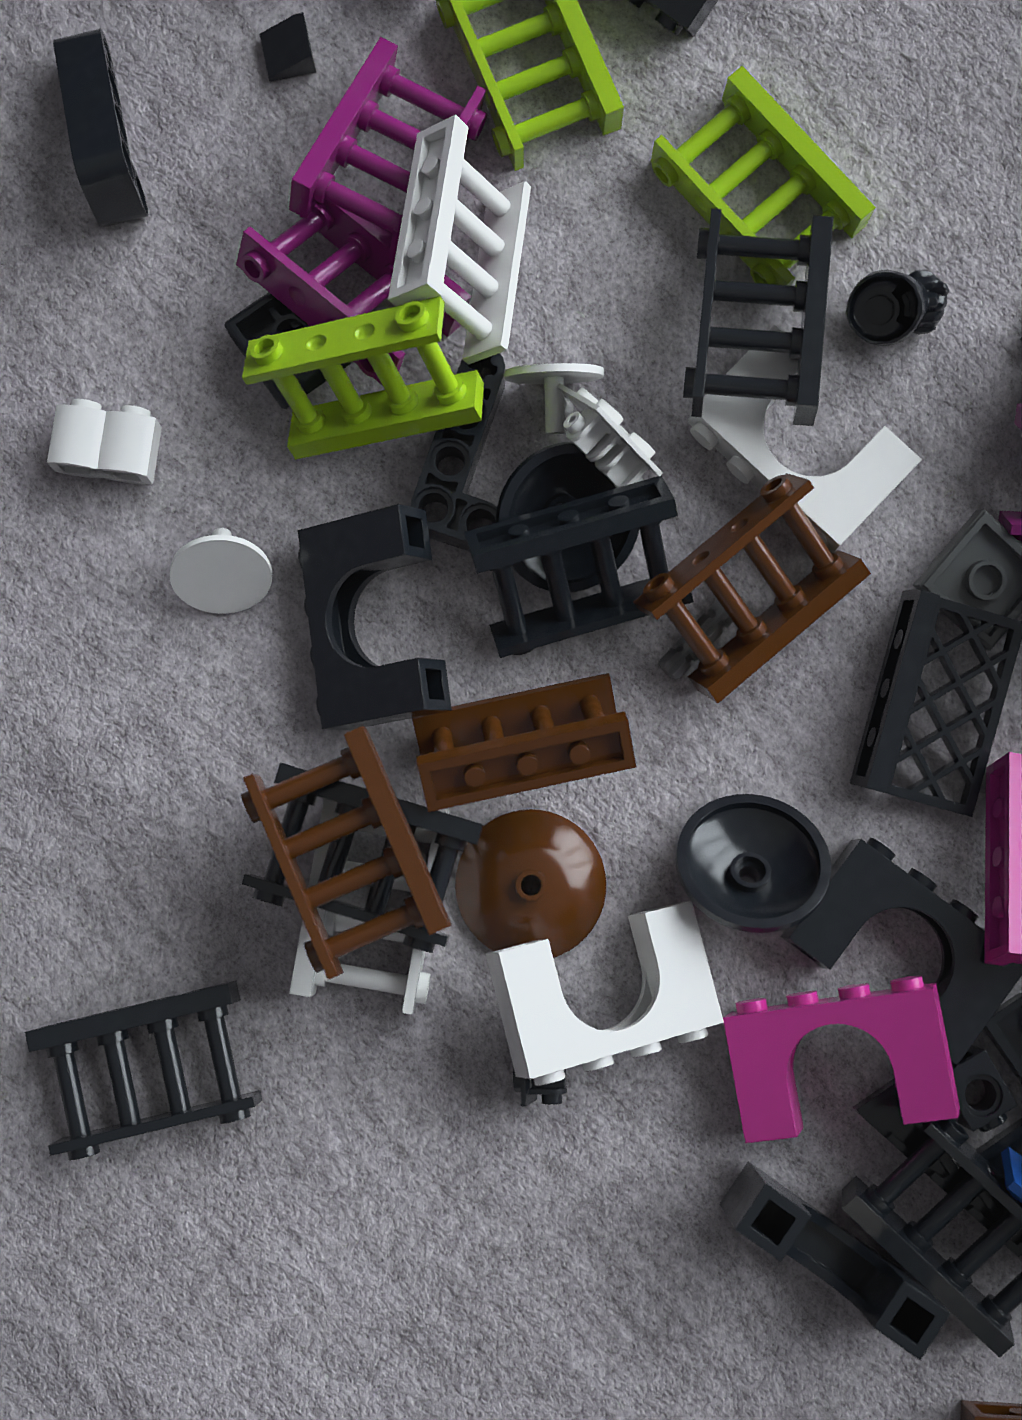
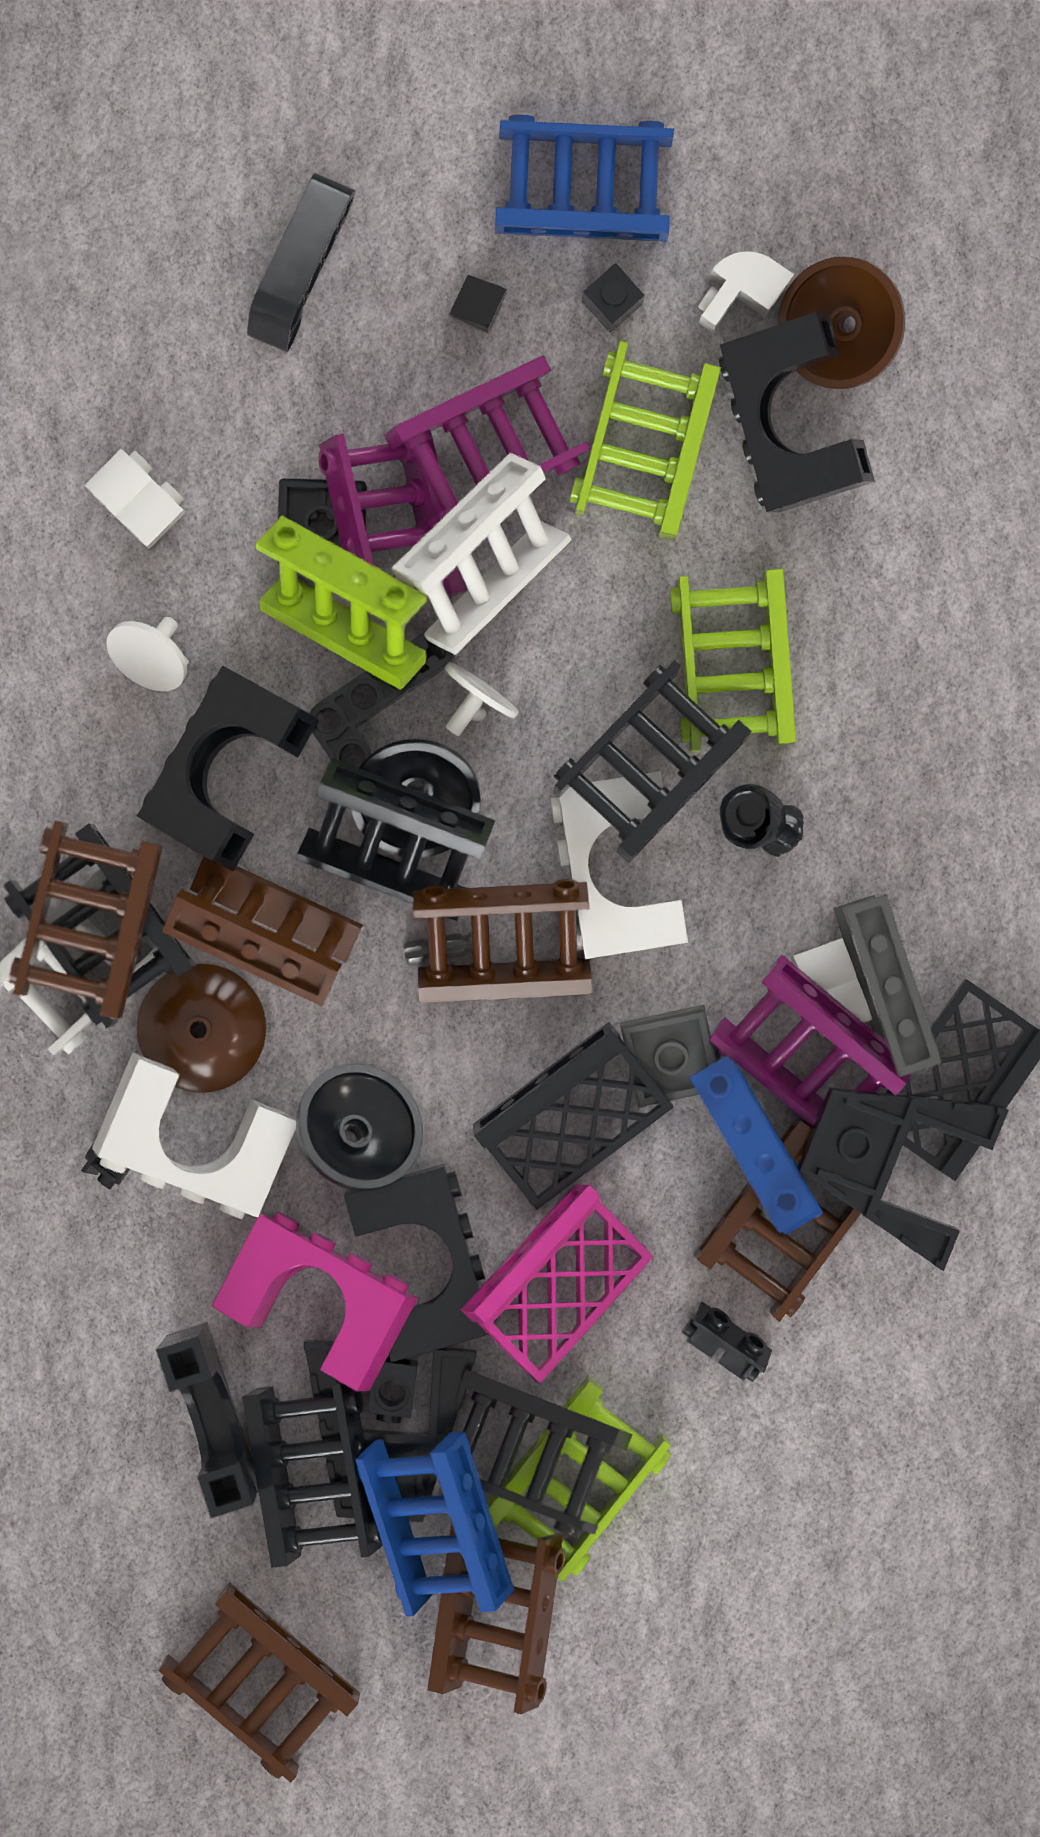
camera: 35 degrees right, 5 degrees up
(605, 441) = (477, 767): white hinge -> none

